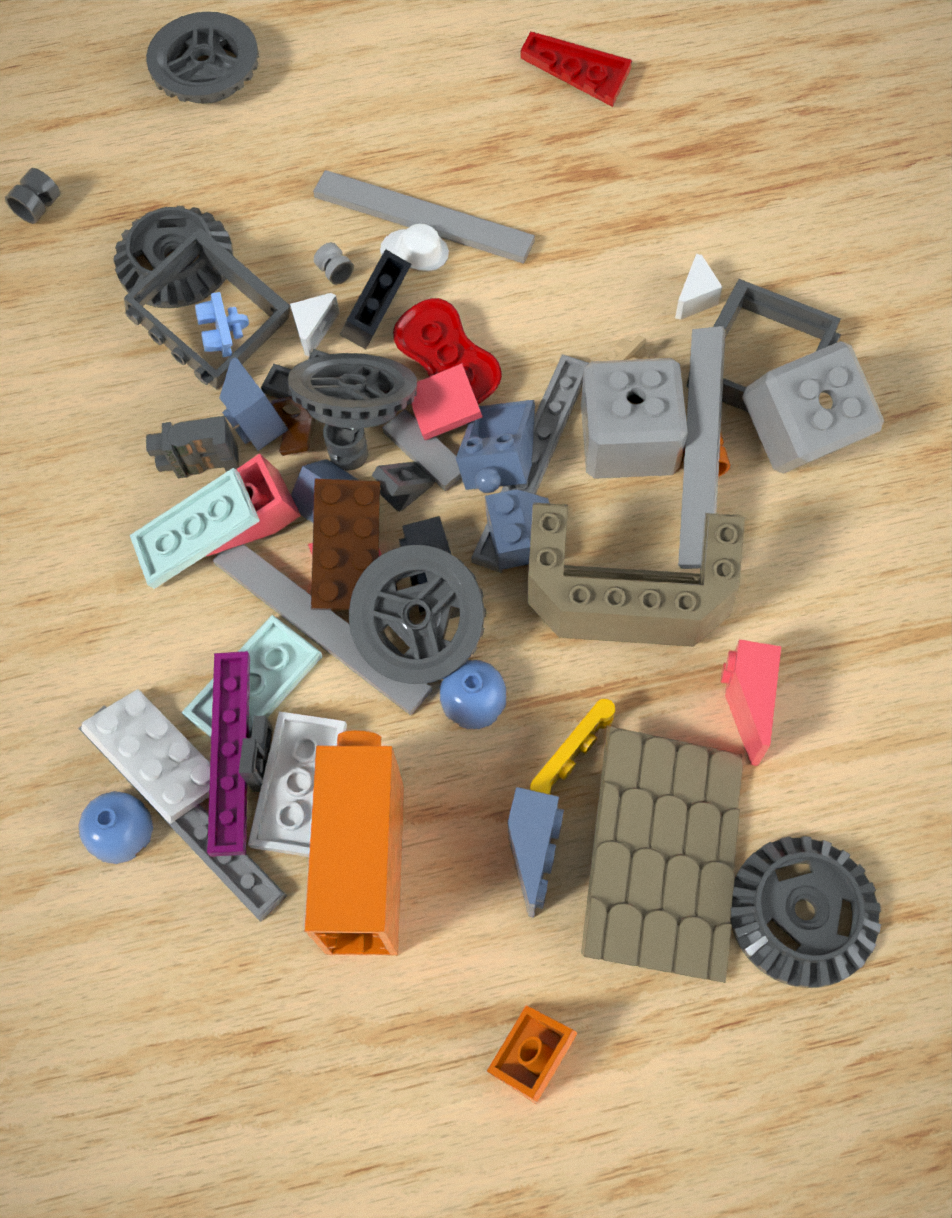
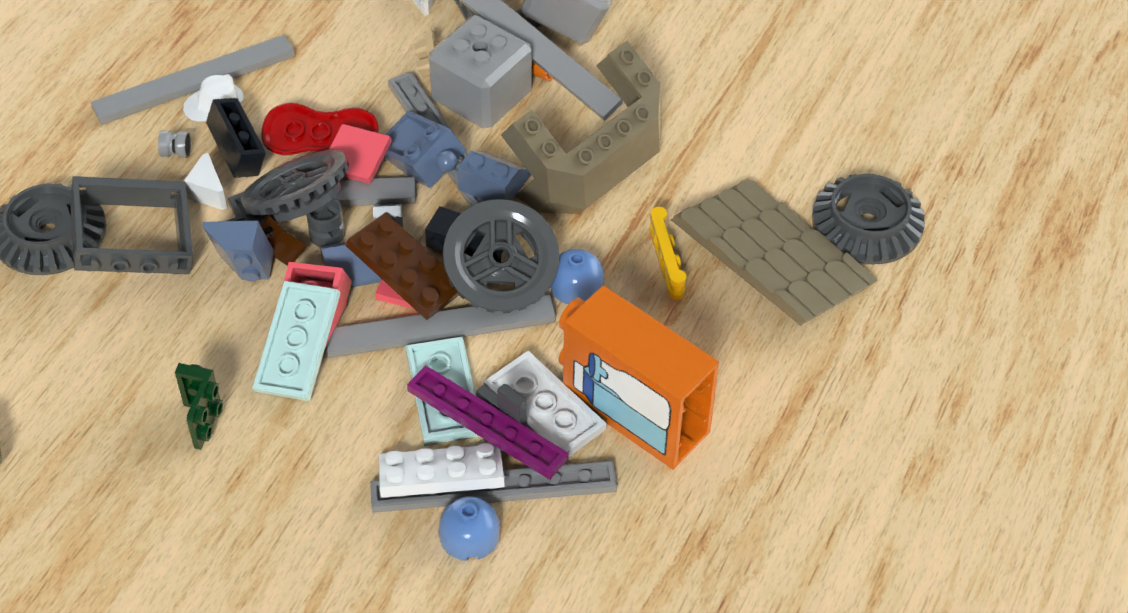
camera: 55 degrees left, 15 degrees down
(68, 517) = (201, 394): none -> dark green bracket
(194, 446) = (235, 300): dark grey hips -> none
(214, 311) = (163, 217): light blue hips -> none
(531, 826) = (712, 305): sand blue slope -> none
(532, 1053) = (840, 394): orange slope -> none
(751, 693) = (723, 142): coral slope -> none

